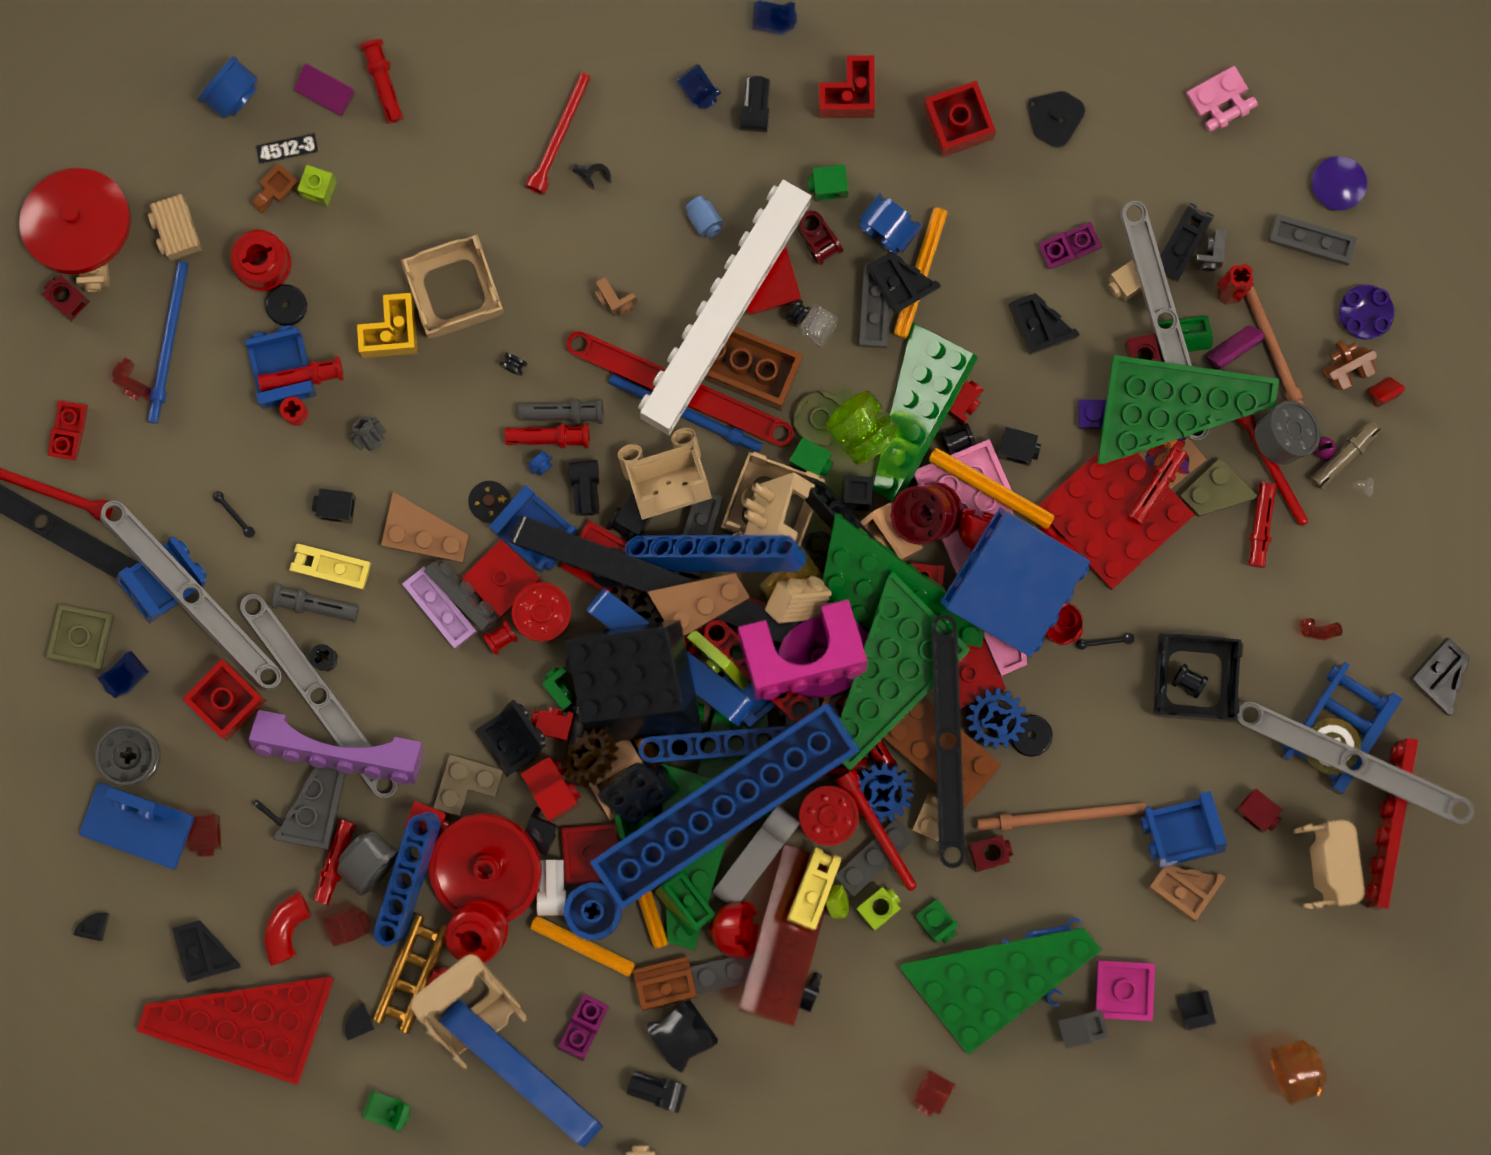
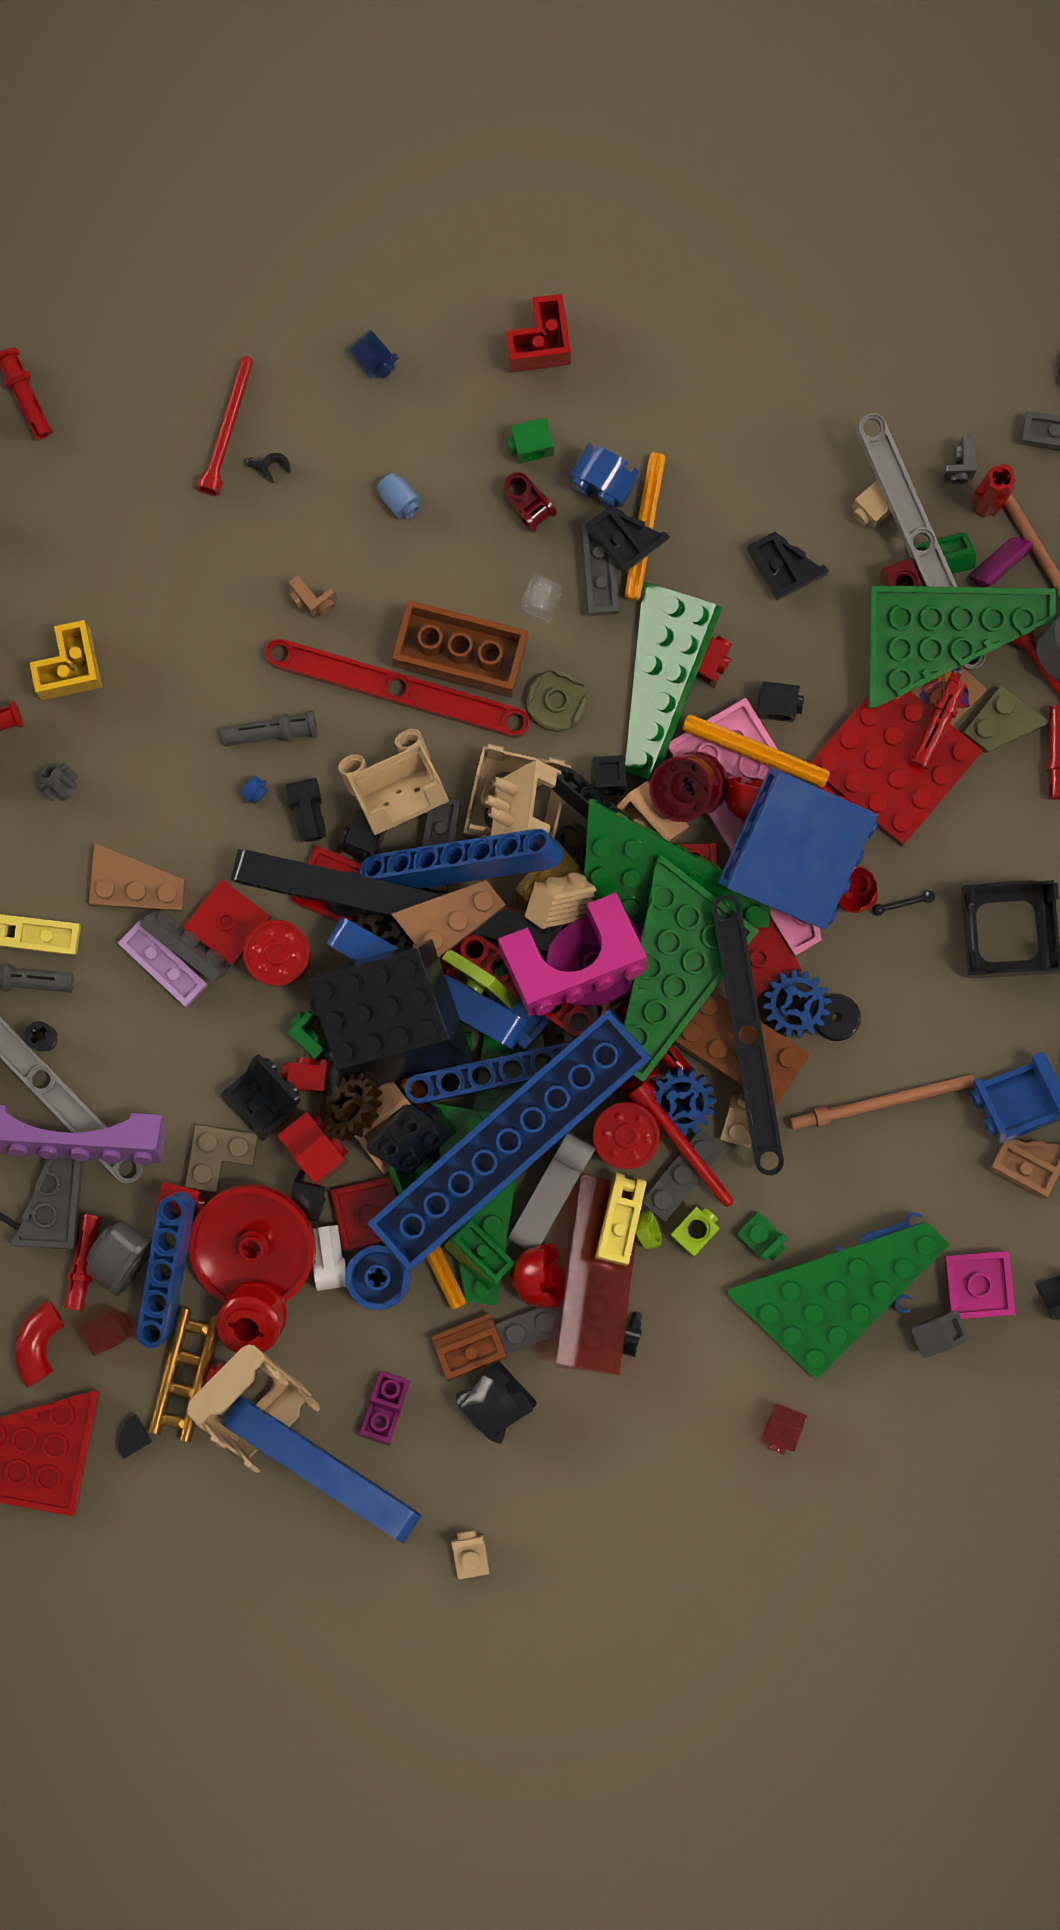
camera: 10 degrees left, 0 degrees up
(334, 505) = (31, 866): black brick -> none
(386, 1111) = (177, 1532): green bracket -> none
(427, 260) = (113, 576): tan piece -> none
(488, 500) = (203, 839): piece -> none
(500, 637) = (235, 988): red bush -> none
(513, 364) = (209, 684): black bush -> none
(532, 507) = (248, 837): blue panel -> none
(562, 435) = (272, 756): red pin -> none
(582, 946) = (372, 1317): light orange axle -> none
(663, 1092) = (485, 1468): black piece -> none
(725, 307) = (435, 589): white brick -> none
(735, 436) = (464, 731): blue bar -> none
(755, 111) = (439, 374): black piece -> none
(774, 17) = (446, 268): clear blue bracket -> none
(778, 287) = (478, 557): red tile -> none
(798, 313) = (516, 587): black bush -> none
(811, 458) = (552, 743): green brick -> none
(862, 427) = (604, 702): clear neon green wheel -> none
(958, 439) = (711, 702): black bush -> none
(959, 118) = (664, 352): red brick -> none
(979, 859) = (800, 1163): dark red brick -> none
(1049, 111) = (760, 336): black piece -> none
(1070, 245) = (805, 475): magenta slope -> none
(1091, 413) = (853, 655): dark purple plate -> none
(1184, 241) = (930, 454): black plate -> none
(1190, 681) = (1003, 933): black bush -> none
(1218, 91) = (943, 287): bright pink plate -> none

